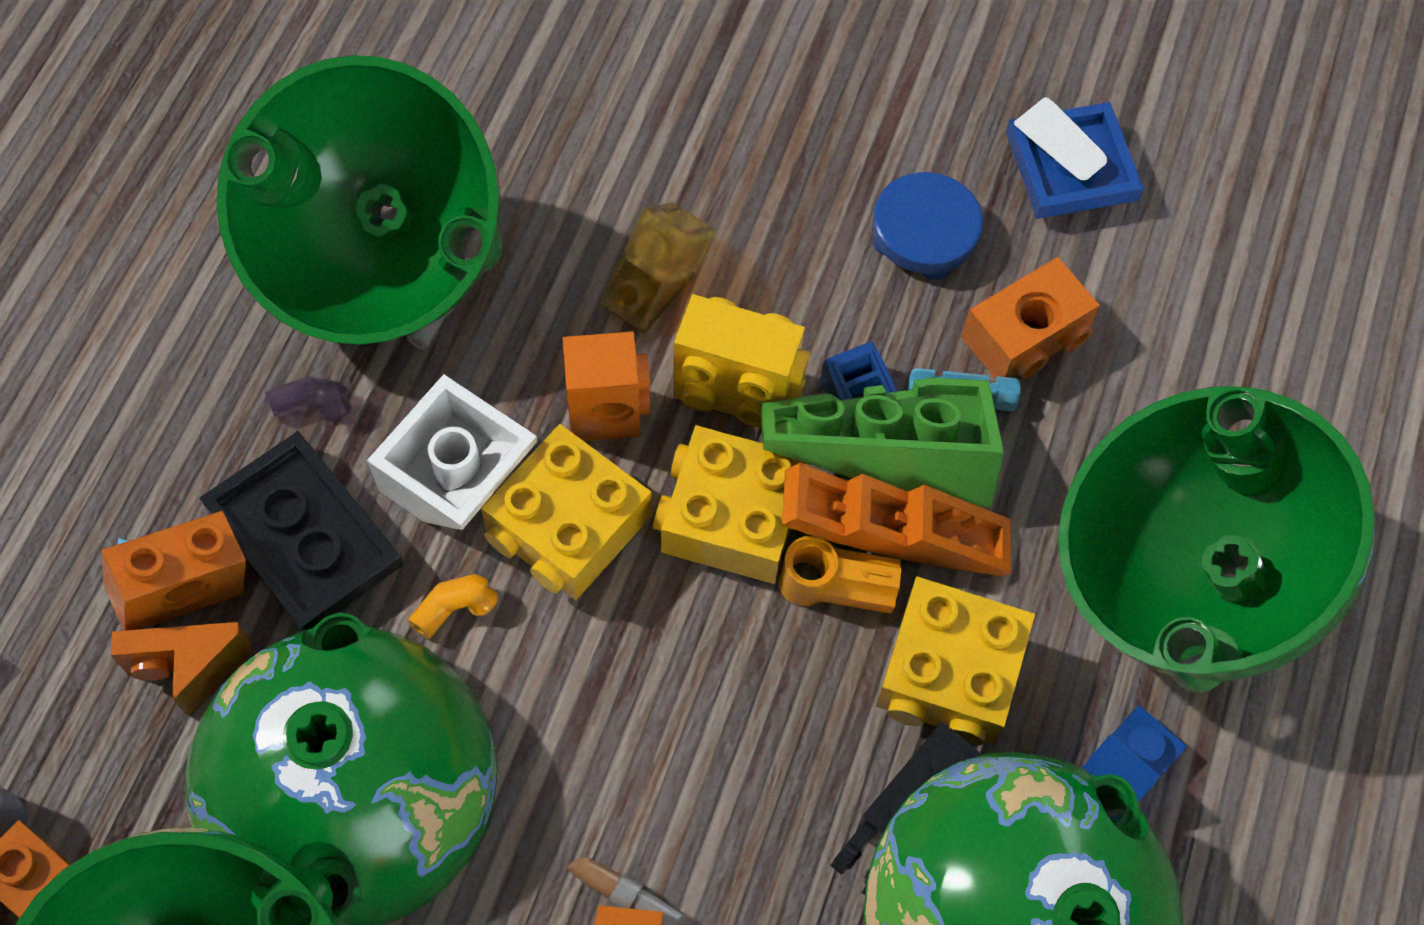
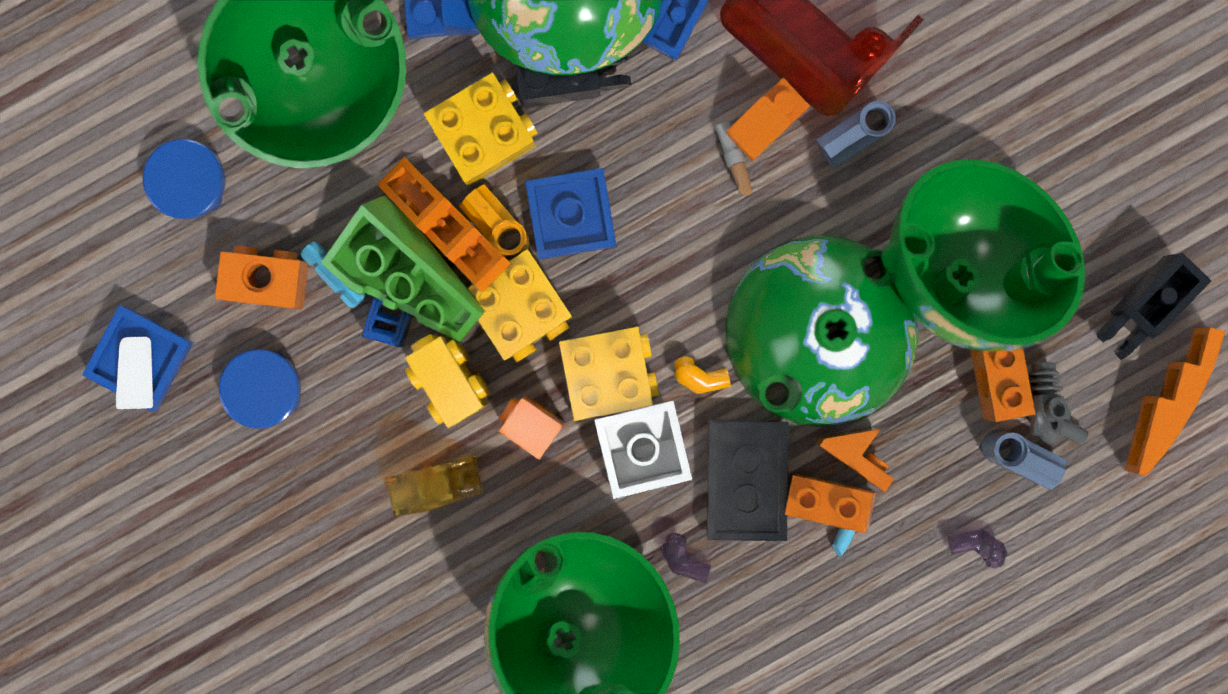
camera: 145 degrees left, 25 degrees up
(765, 659) = (570, 214): none -> blue plate
(1207, 349) = (184, 179): none -> blue tile

